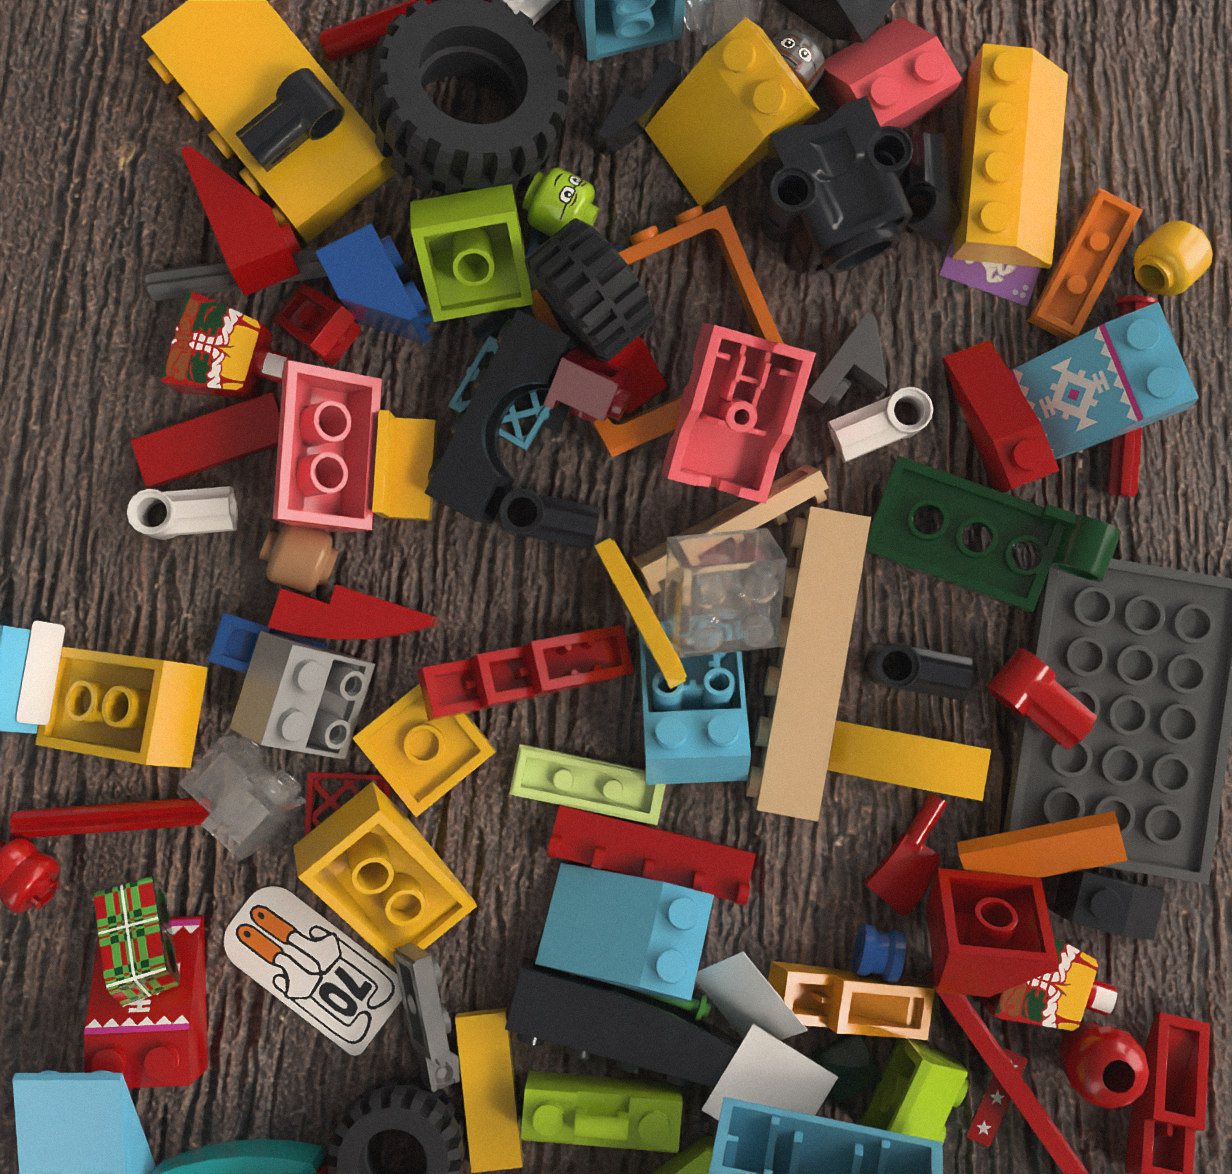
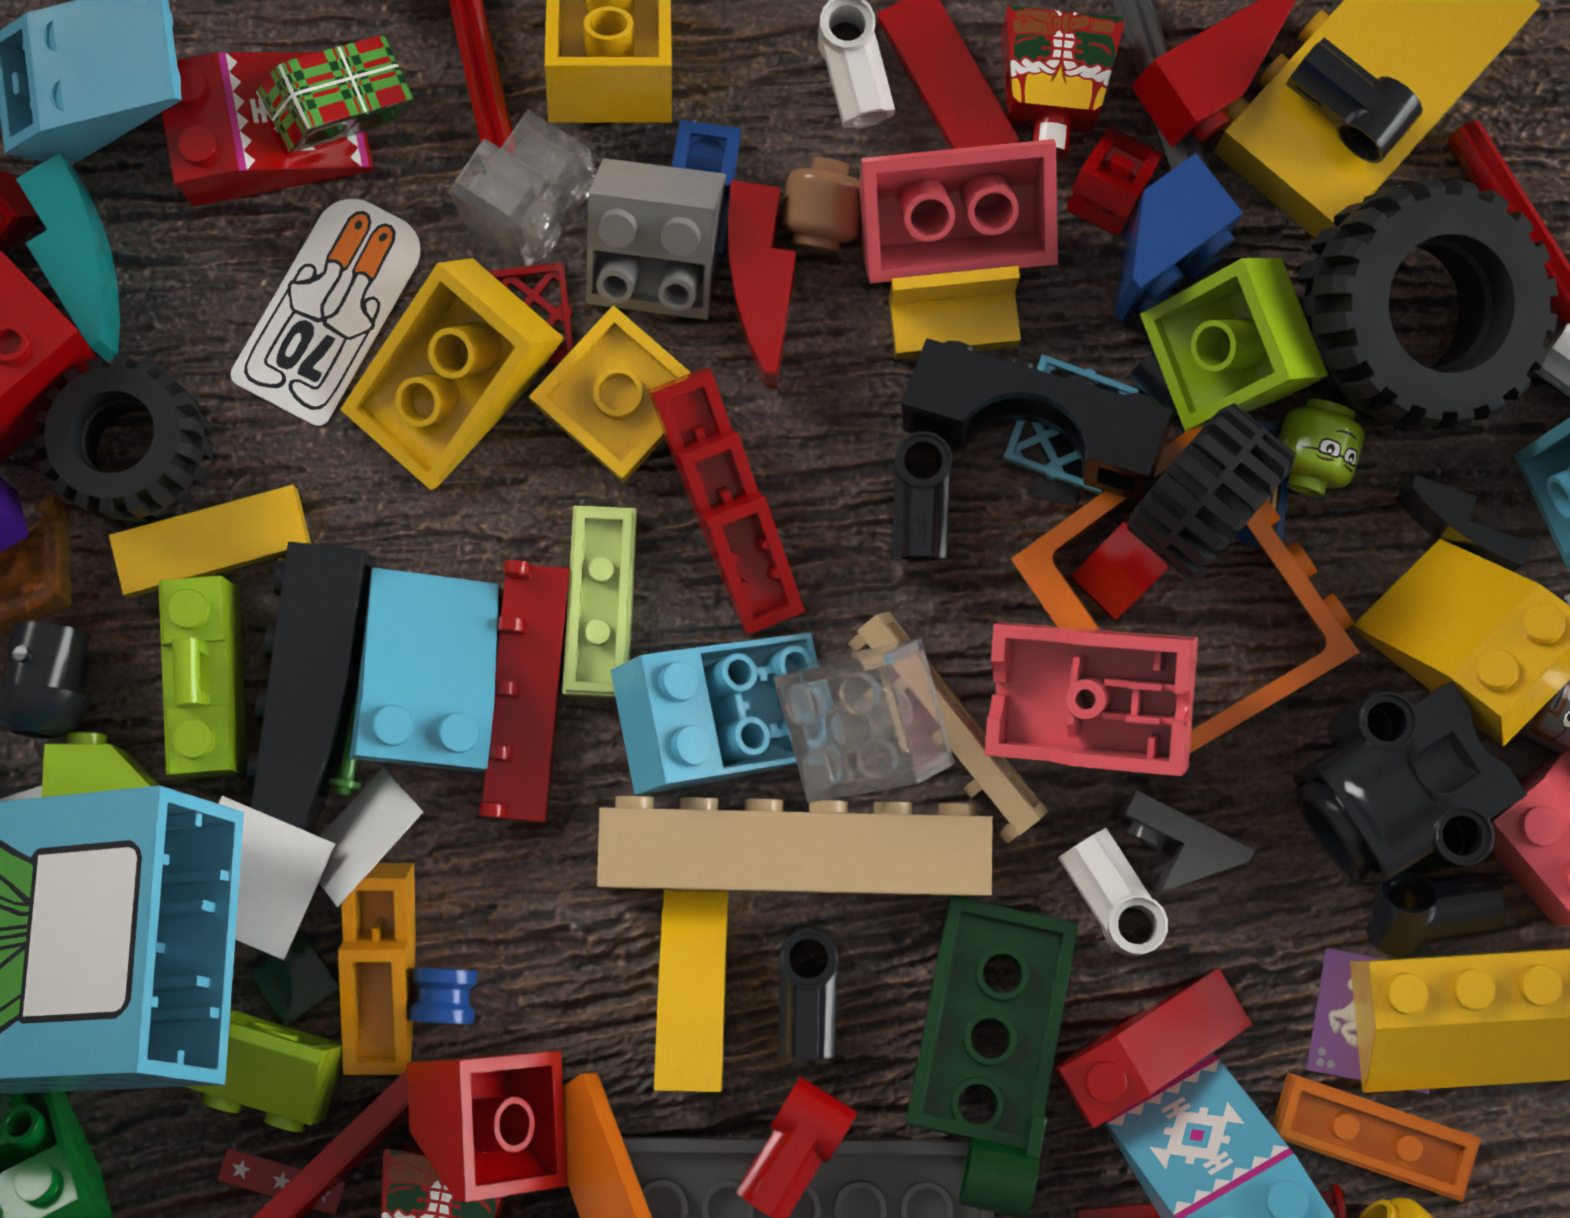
camera: 80 degrees right, 5 degrees down
(426, 1015) = (288, 449): dark grey hinge -> none
(589, 387) = (1091, 512): dark red brick -> none
(641, 613) = (821, 625): yellow tile -> none
(910, 864) = (556, 1020): red piece -> none

